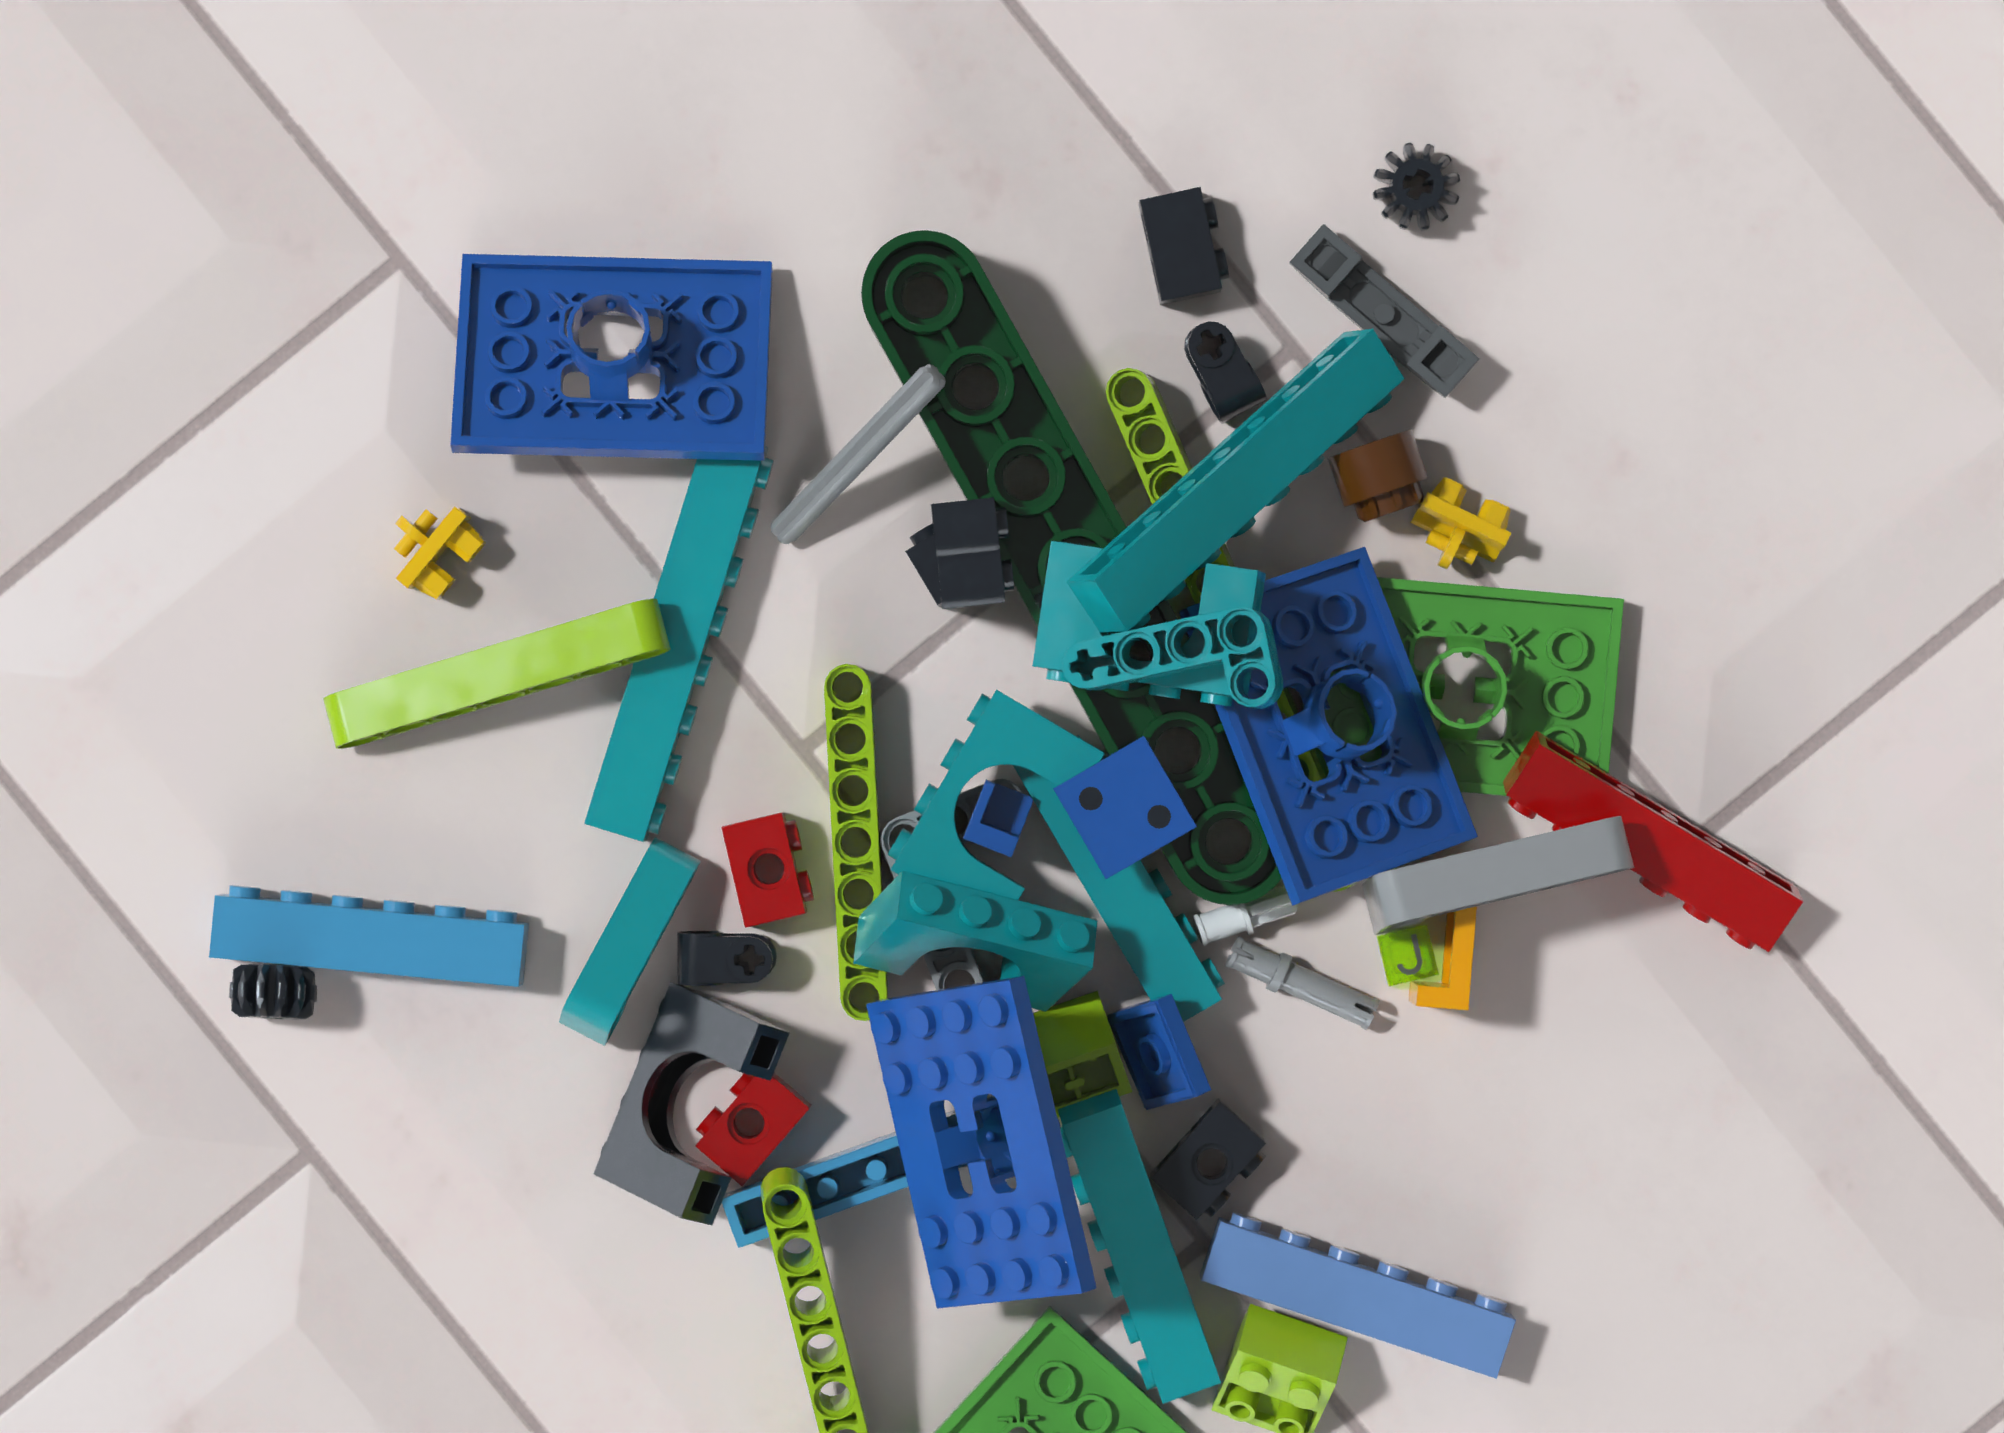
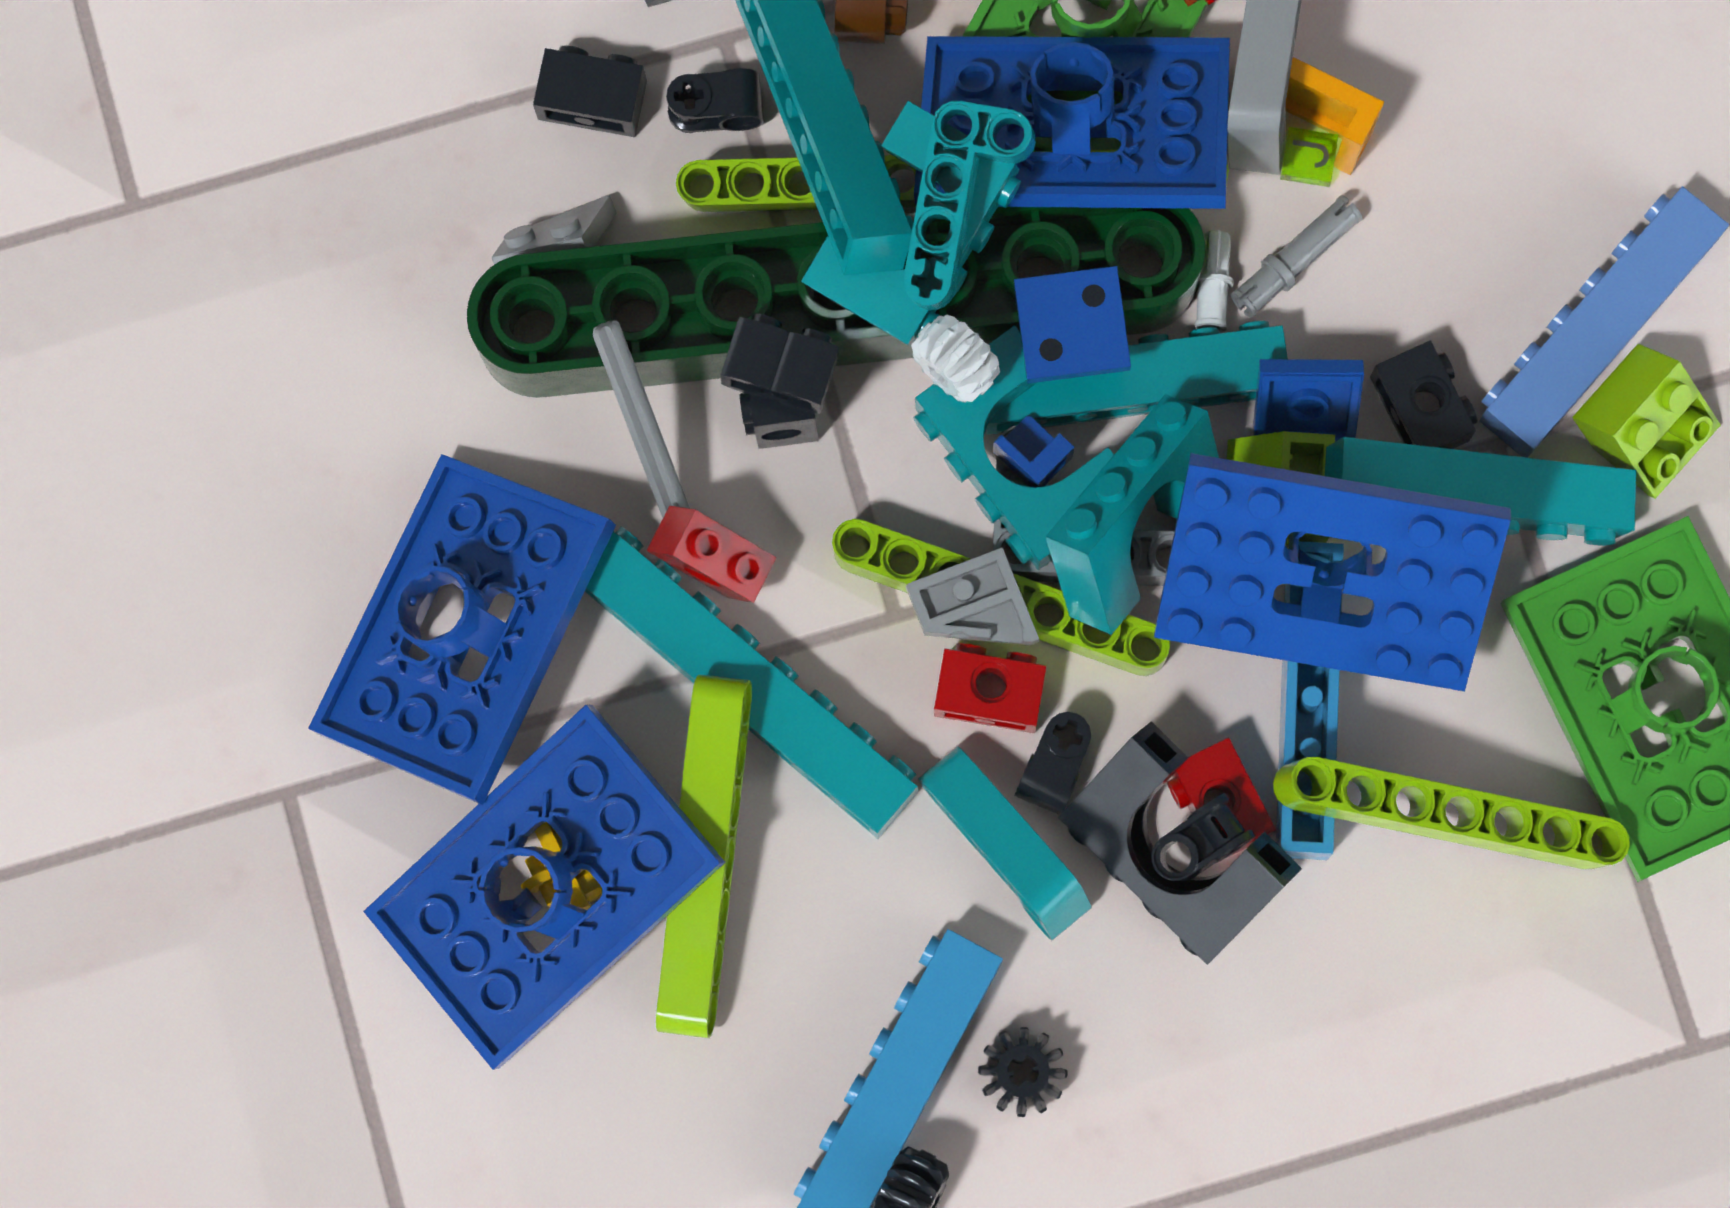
camera: 60 degrees left, 10 degrees down
(441, 1035) = (1026, 1089): none -> black gear
(482, 579) = (473, 945): none -> blue plate
(705, 1127) = (1203, 838): none -> black piece
(778, 559) = (711, 553): none -> red brick
(832, 823) = (974, 602): none -> light grey wing
(1023, 278) = (568, 230): none -> light grey wing
(1039, 715) = (955, 358): none -> white gear

